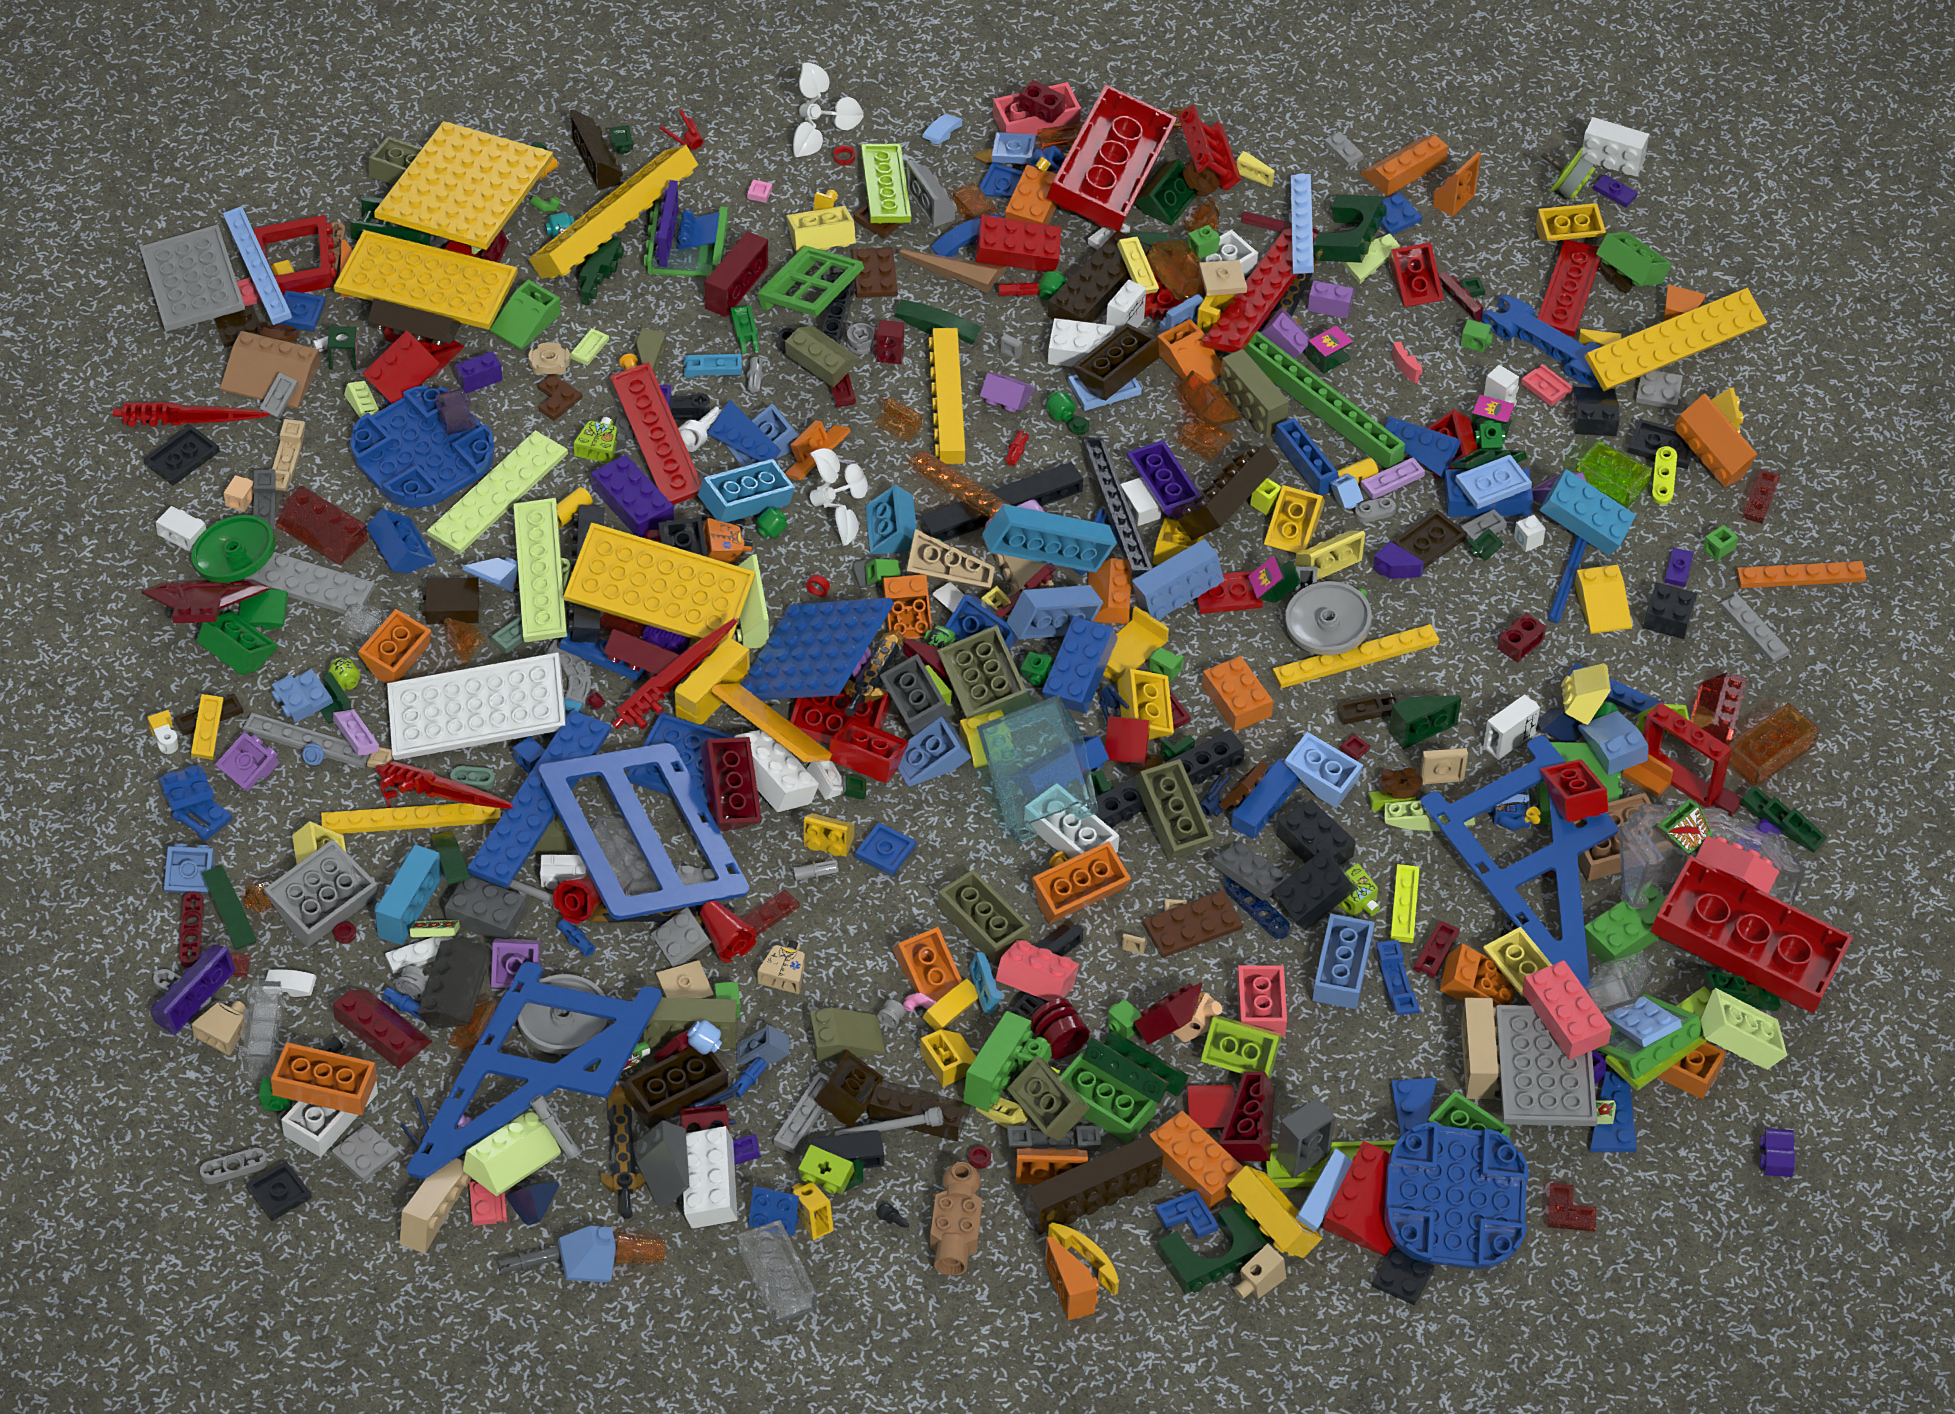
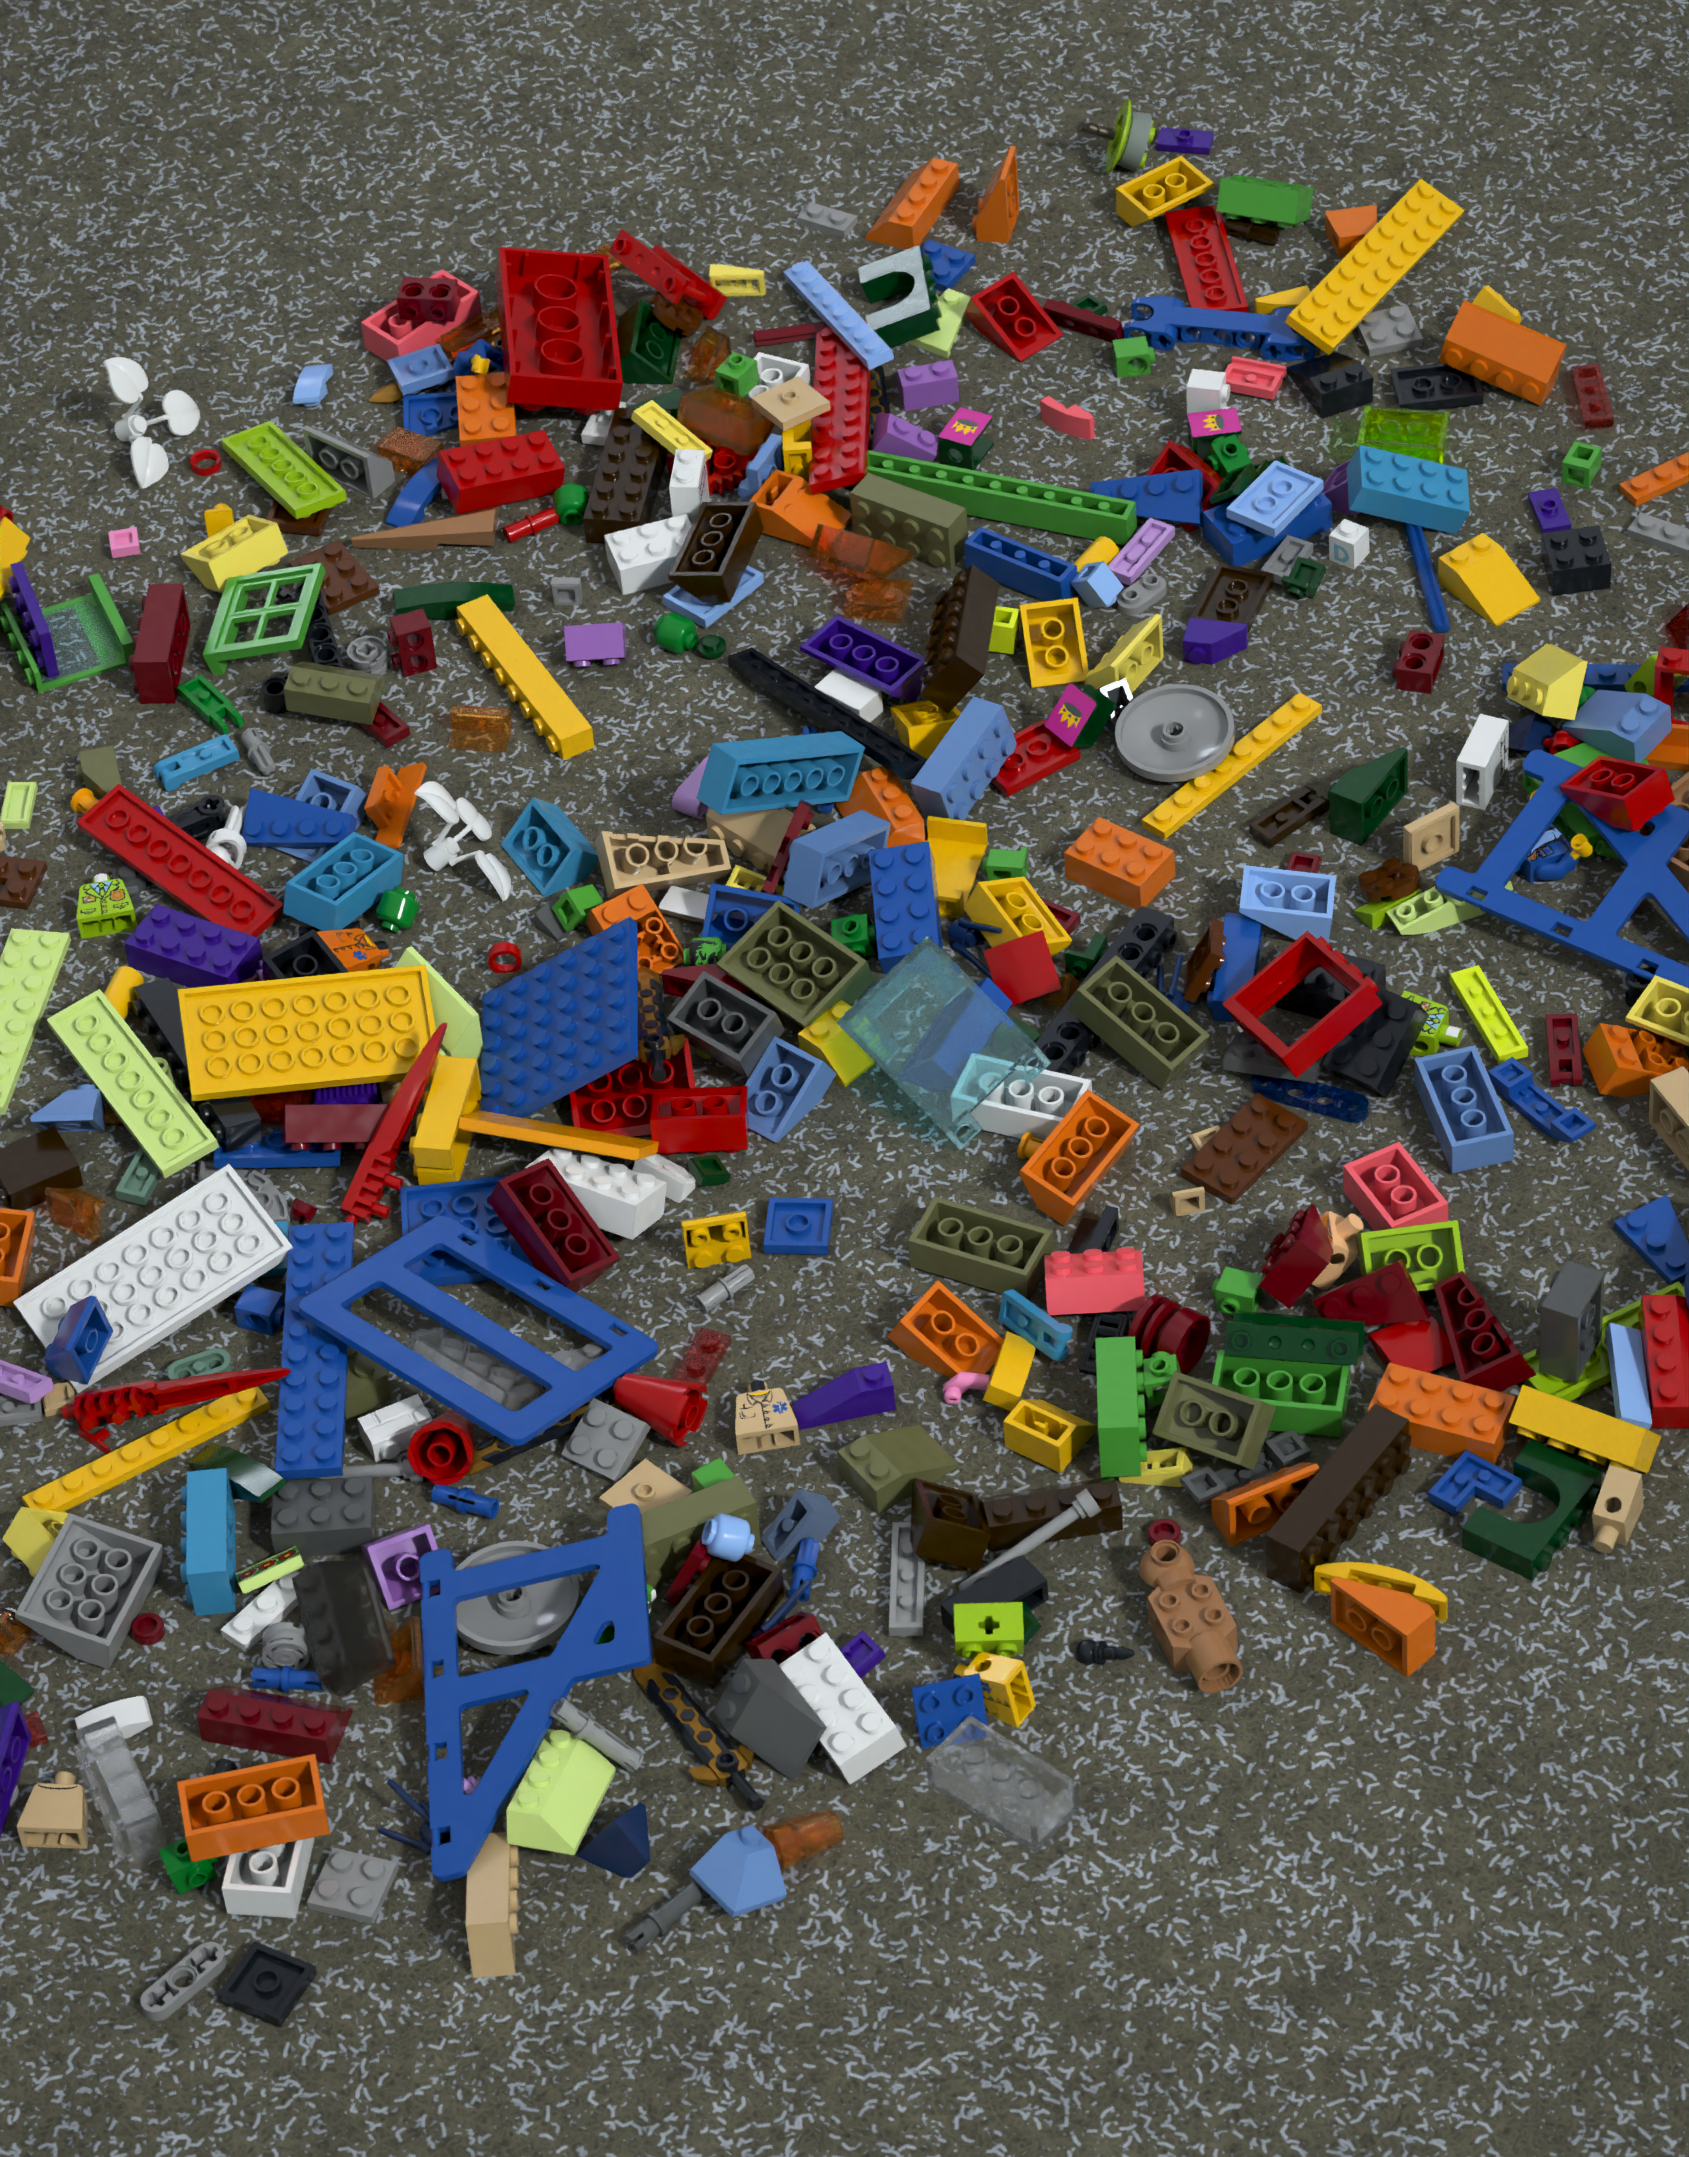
camera: 20 degrees left, 5 degrees down
(406, 729) = (79, 1341): none -> blue slope
(486, 1206) = (560, 1875): coral plate -> none
(697, 230) = (75, 615): blue hinge -> none
(845, 977) = (850, 1396): none -> dark purple slope
(891, 1013) = (938, 1413): light grey wheel -> none
(956, 483) = (615, 768): clear orange plate -> none
(1016, 448) = (650, 702): red axle -> none
(1043, 487) = (653, 789): black brick -> none
(1202, 1063) = (1376, 1297): none -> dark red wing
(1272, 822) = (1283, 975): none -> red piece
(1572, 736) = (1560, 741): none -> red plate
(1615, 146) = (1159, 87): white brick -> none
(1664, 482) = (1463, 427): neon yellow plate -> none

